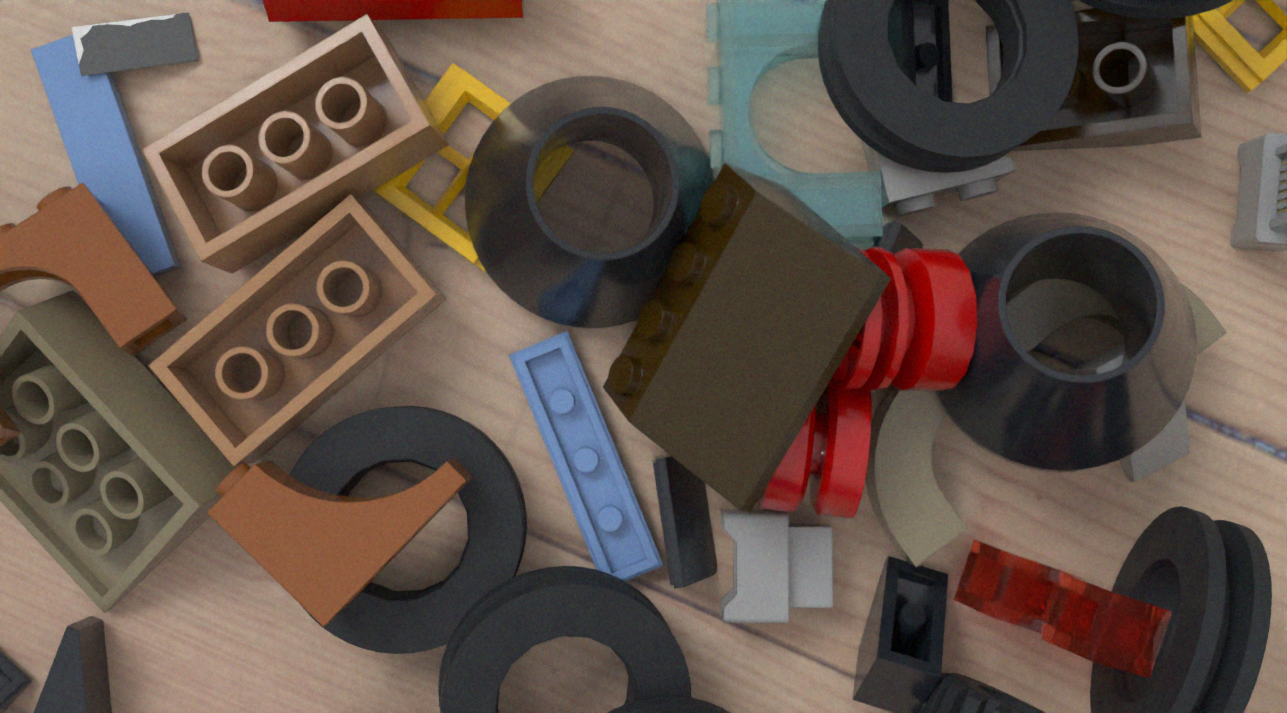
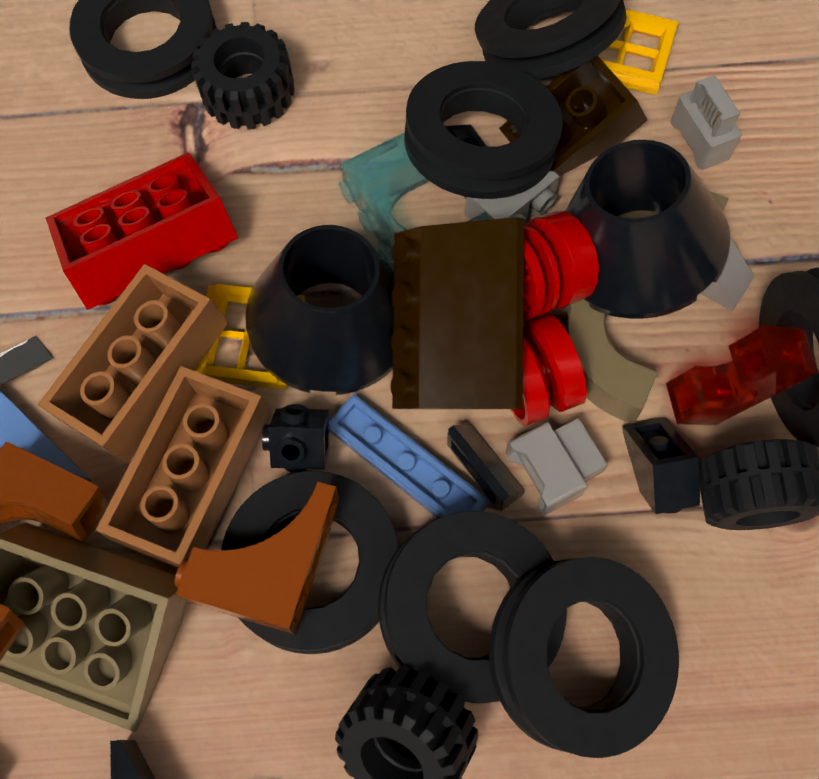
camera: 20 degrees left, 20 degrees down
(461, 362) = (297, 438): none -> black brick

